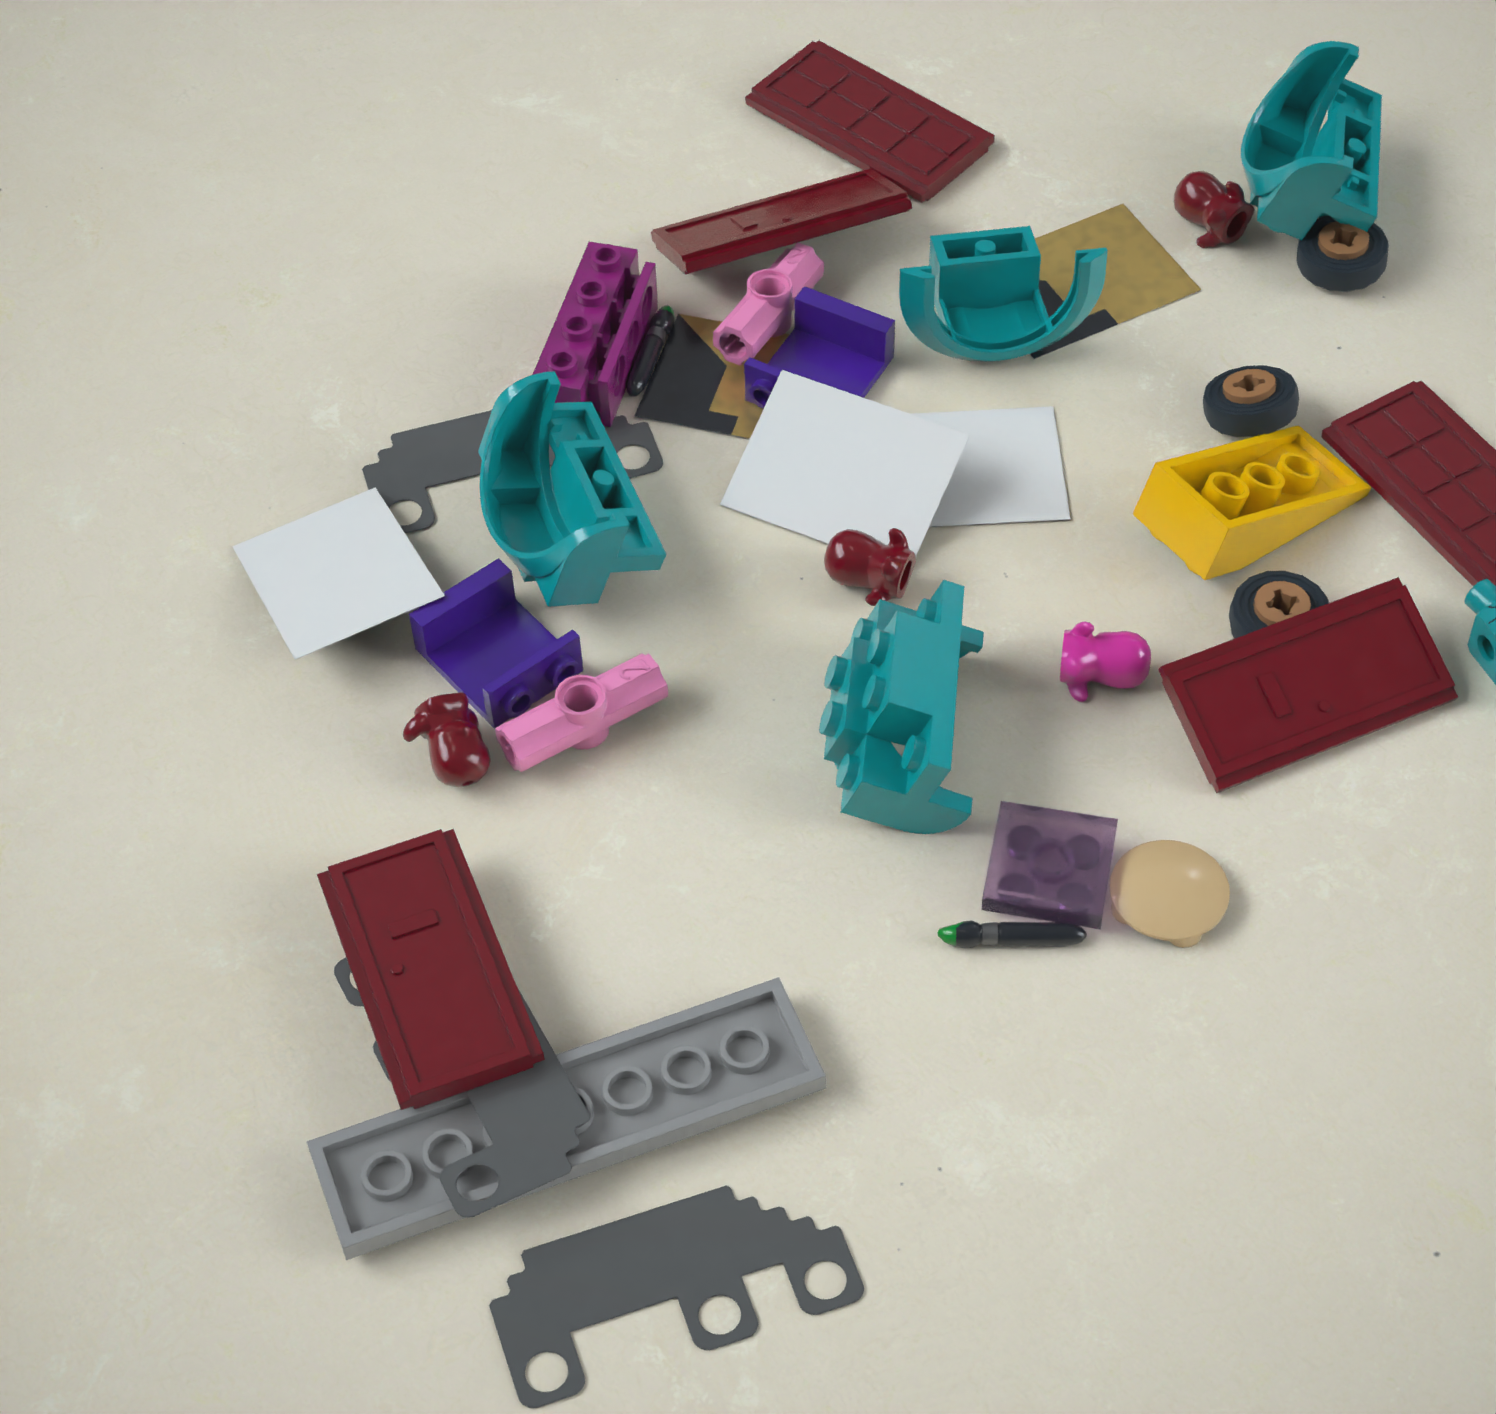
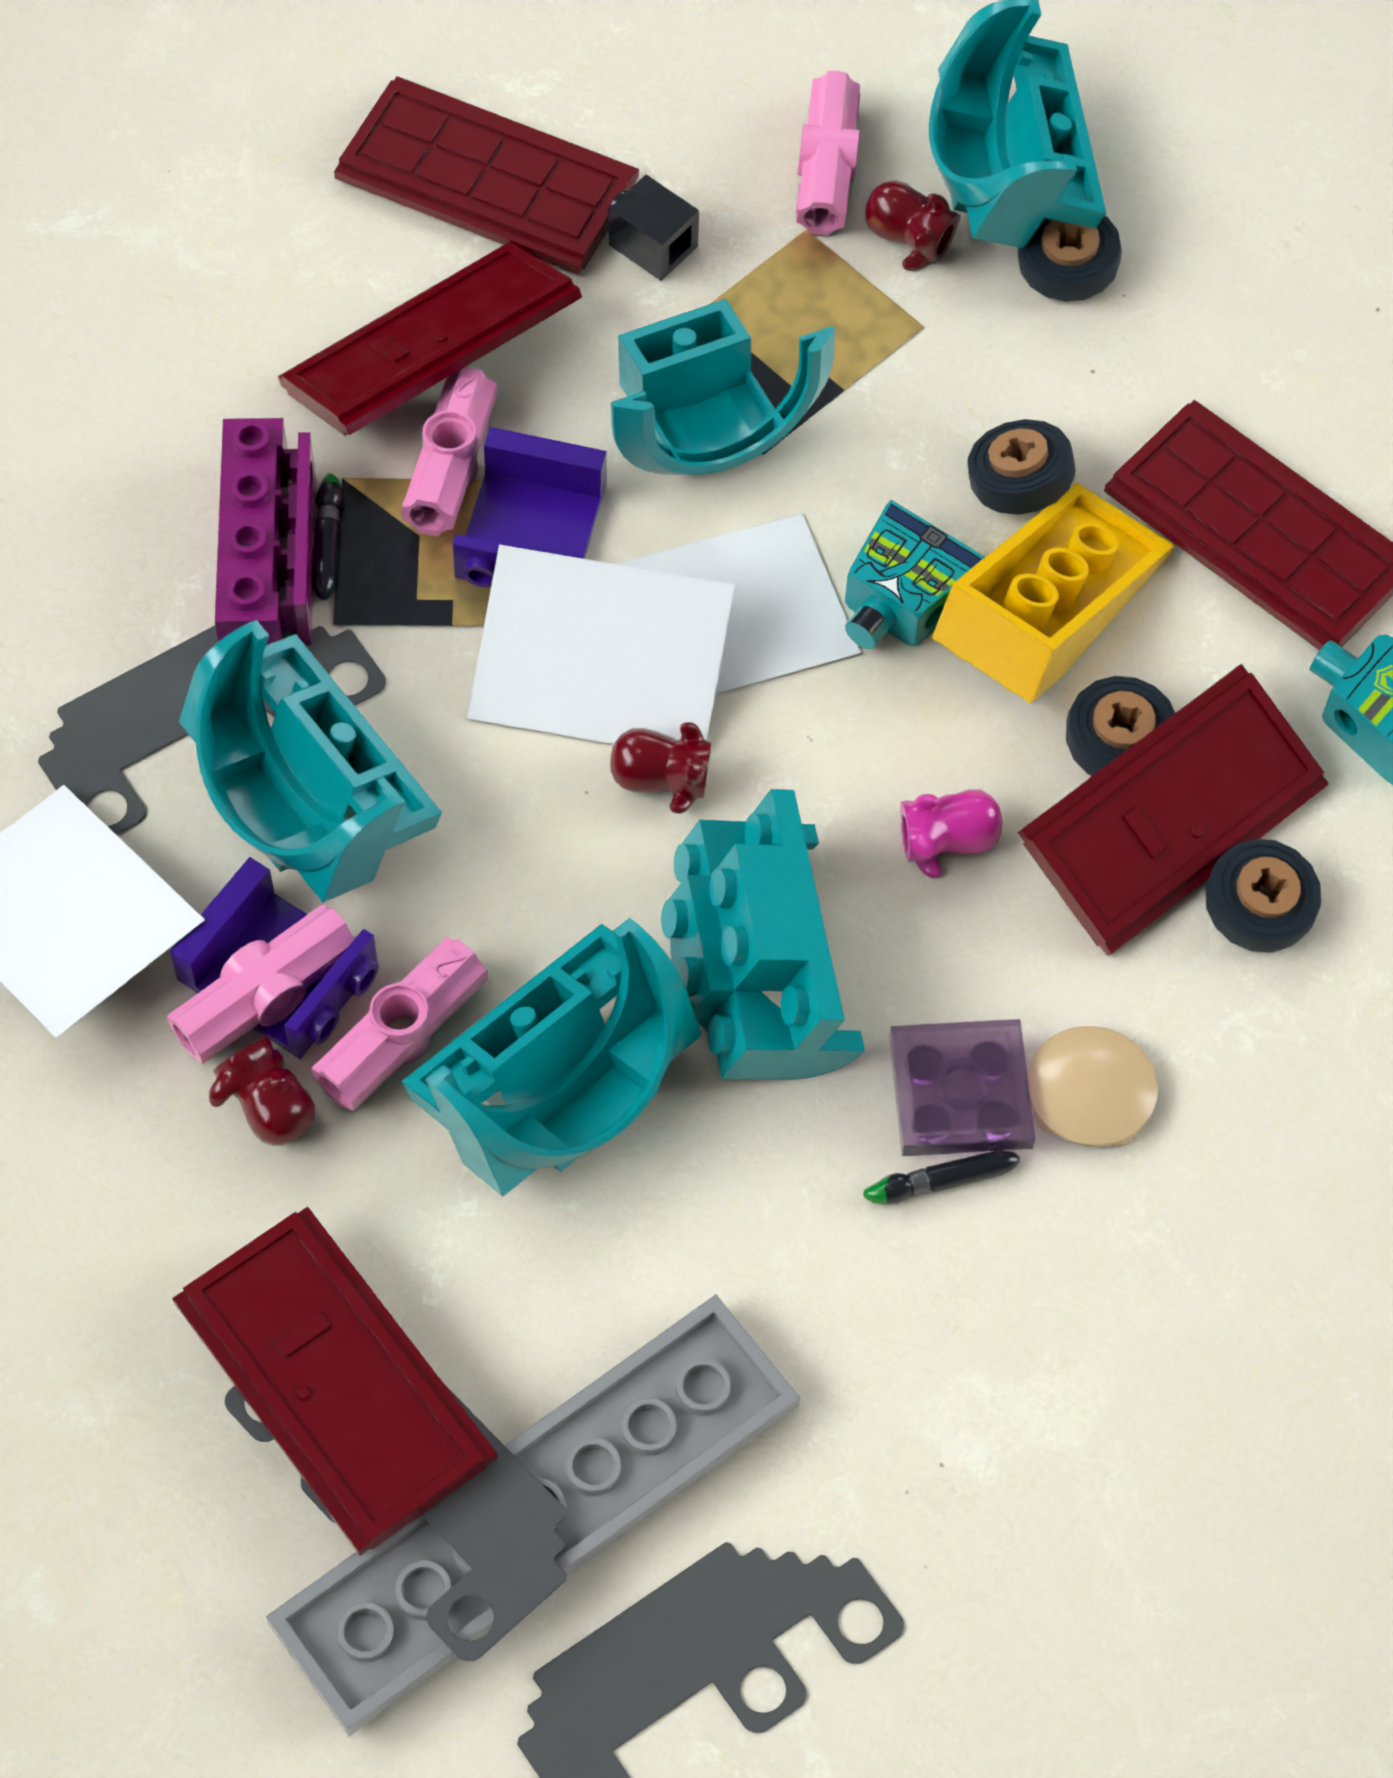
camera: 20 degrees left, 10 degrees up
(473, 656) = (261, 984): none -> bright pink piece
(695, 764) = (551, 1063): none -> teal piece
(991, 175) = (653, 227): none -> black brick
(1115, 461) = (903, 578): none -> teal torso
(1156, 148) = (828, 153): none -> bright pink piece
(1347, 774) = (1247, 913): none -> black wheel

